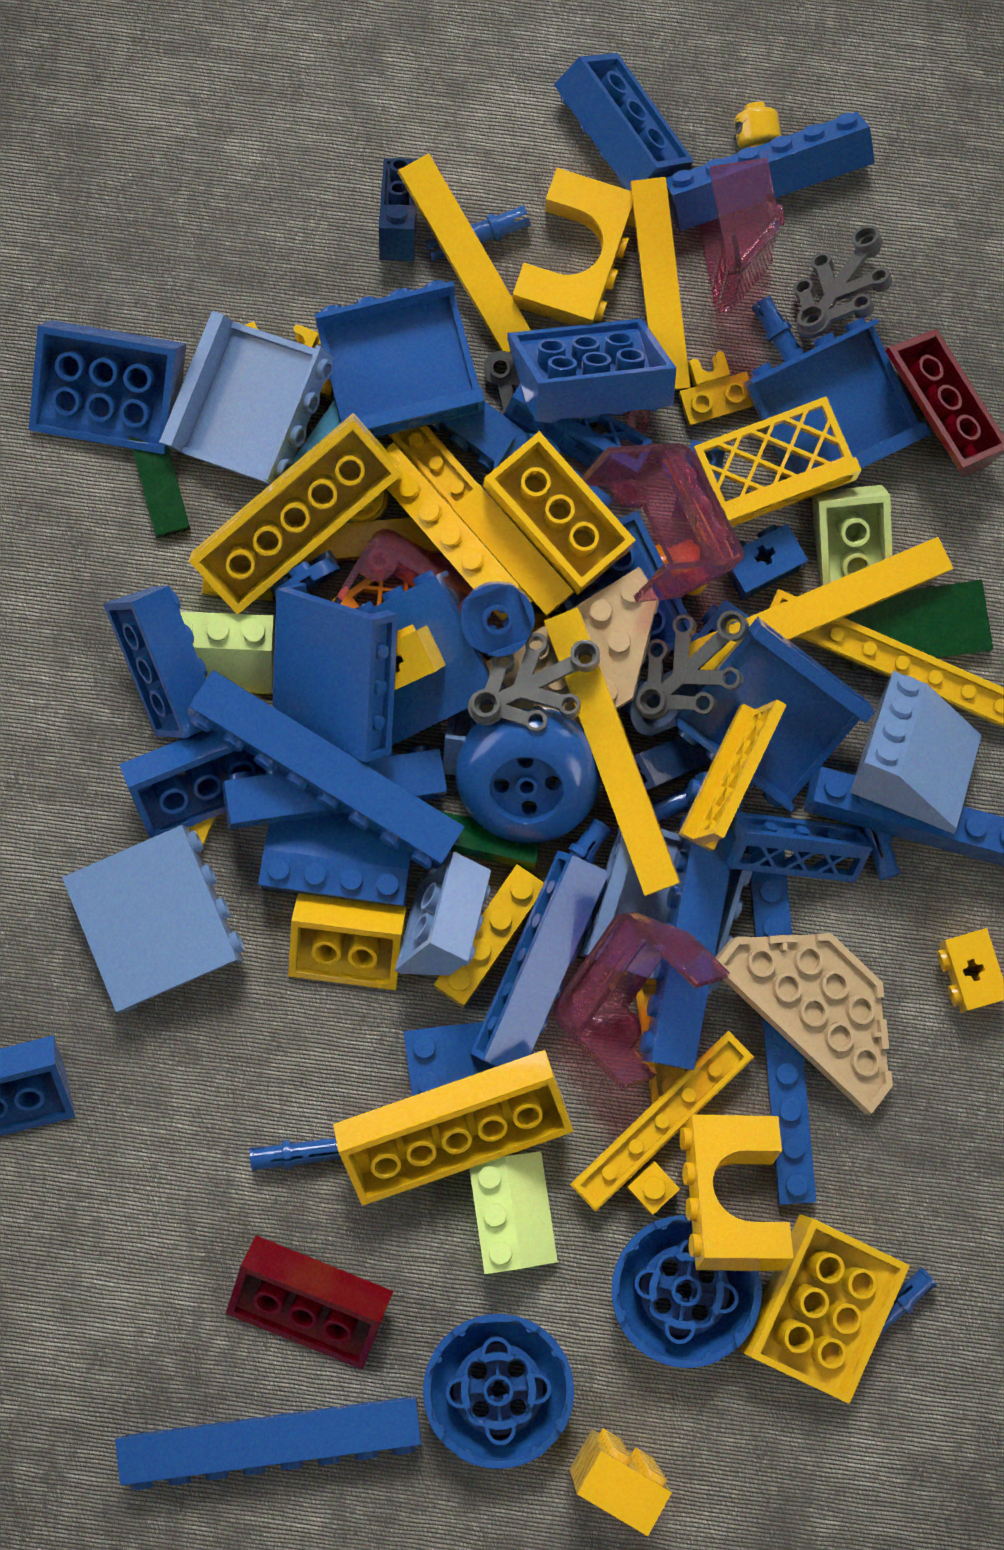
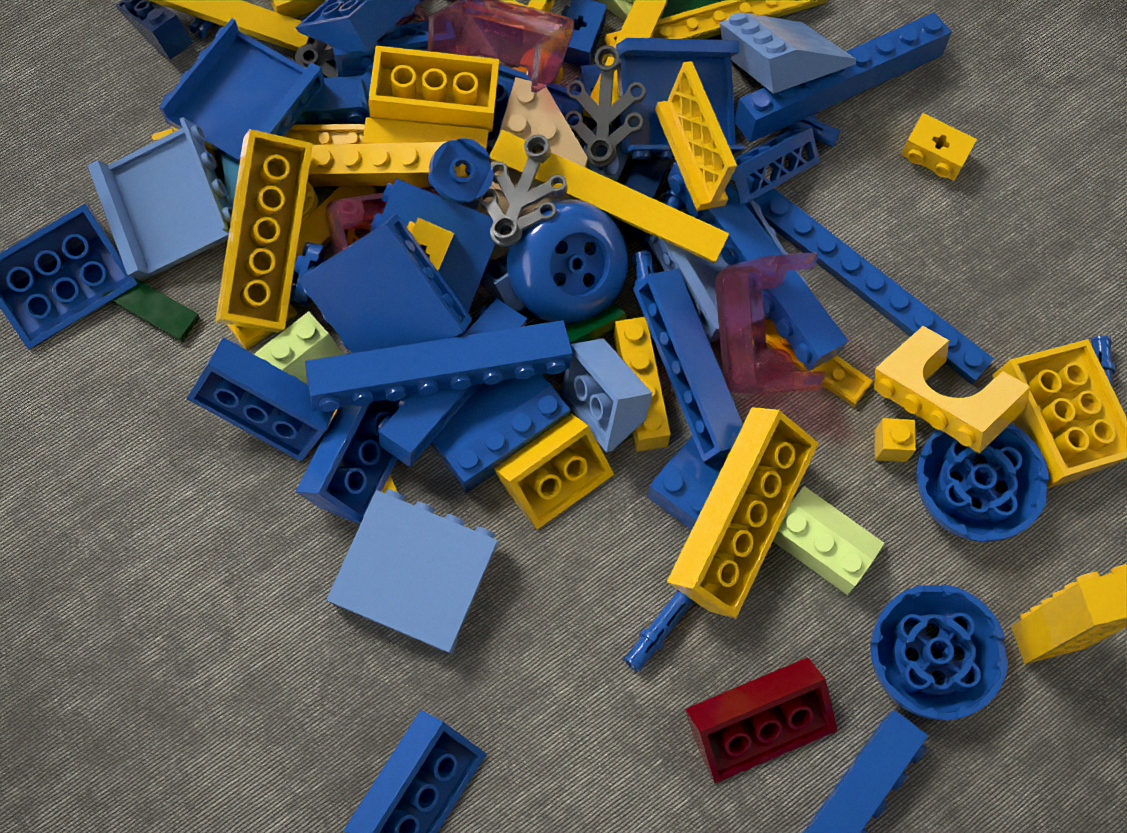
camera: 45 degrees left, 10 degrees down
(661, 1121) = (858, 399): yellow tile -> none
(820, 1004) = (878, 241): tan plate -> none

